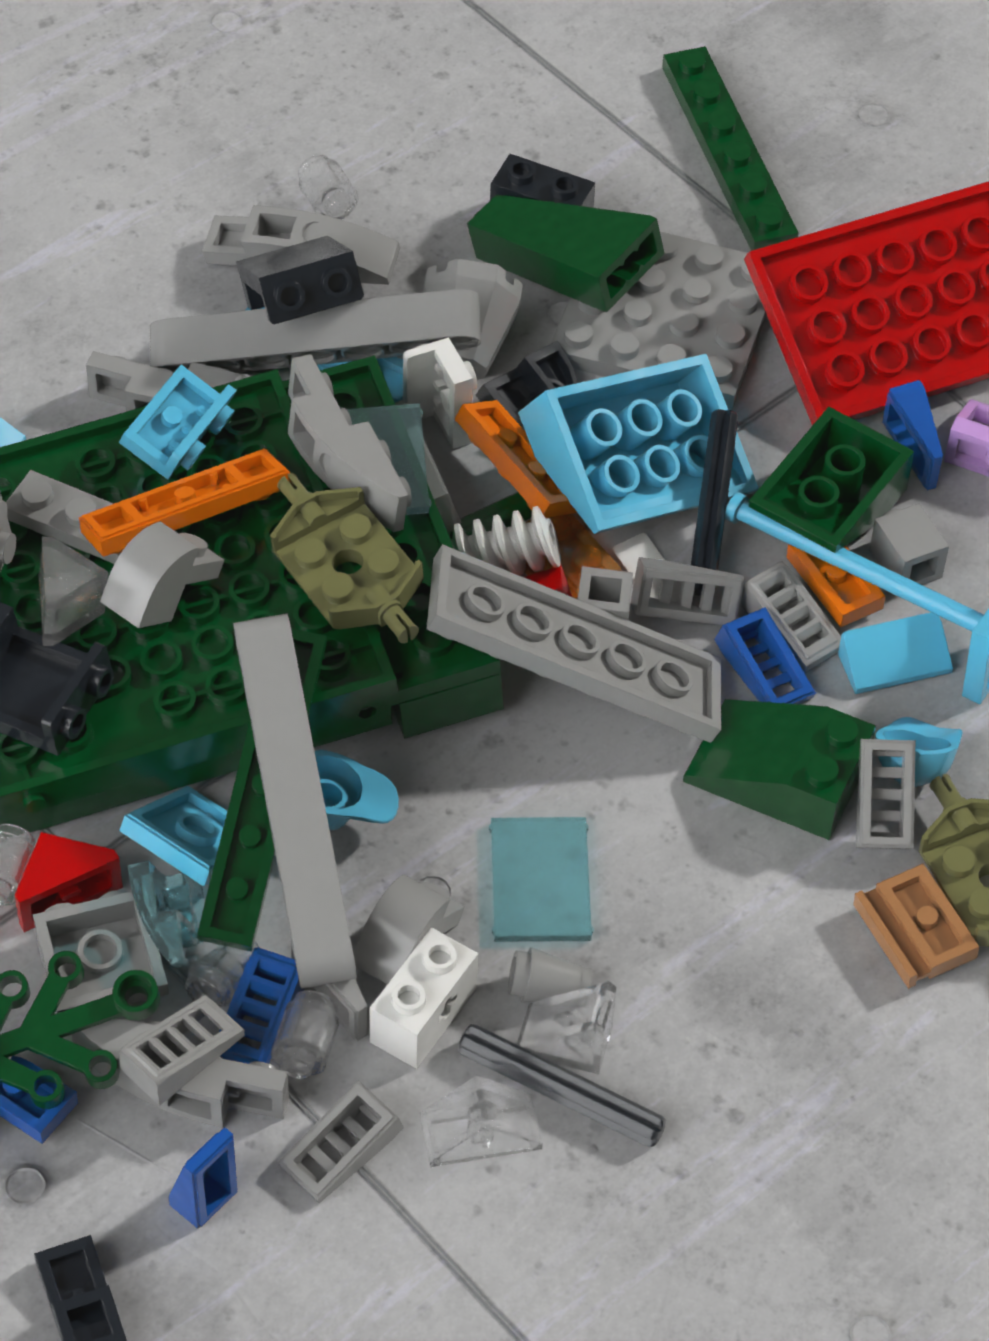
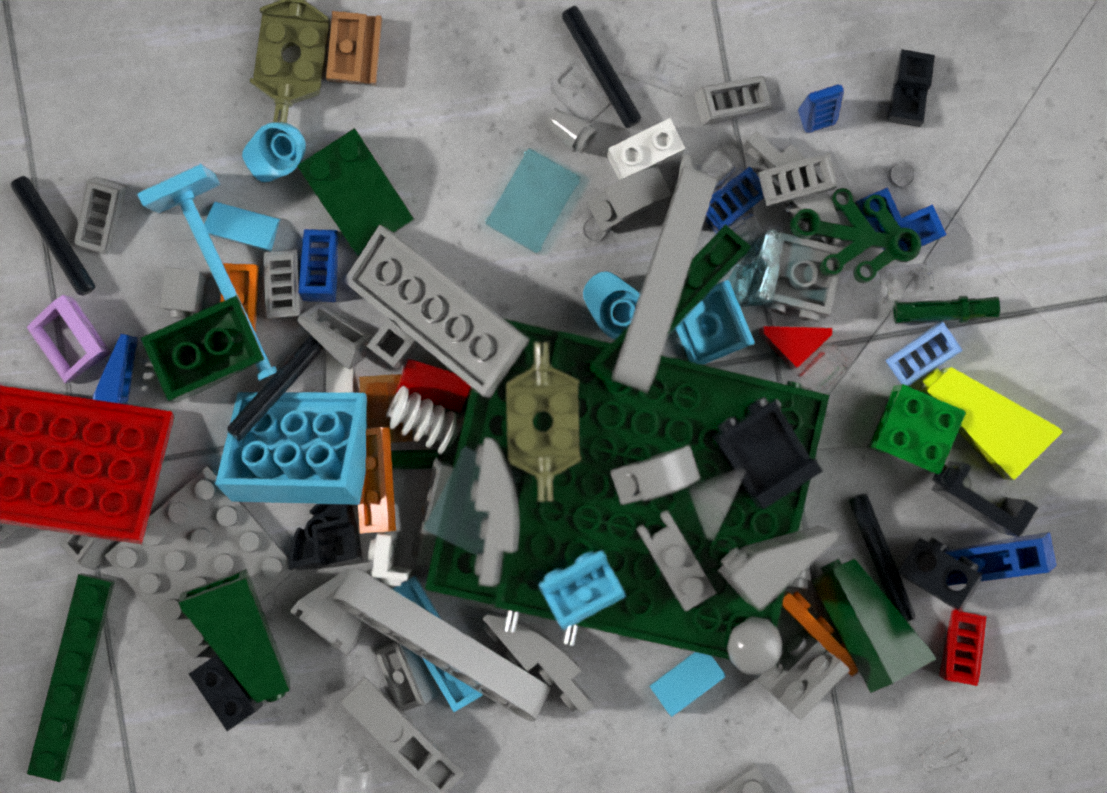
camera: 145 degrees left, 35 degrees up
(184, 500) = (613, 521): orange plate -> none
(301, 279) = (433, 683): black panel -> none
(886, 840) = (331, 106): light grey slope -> none

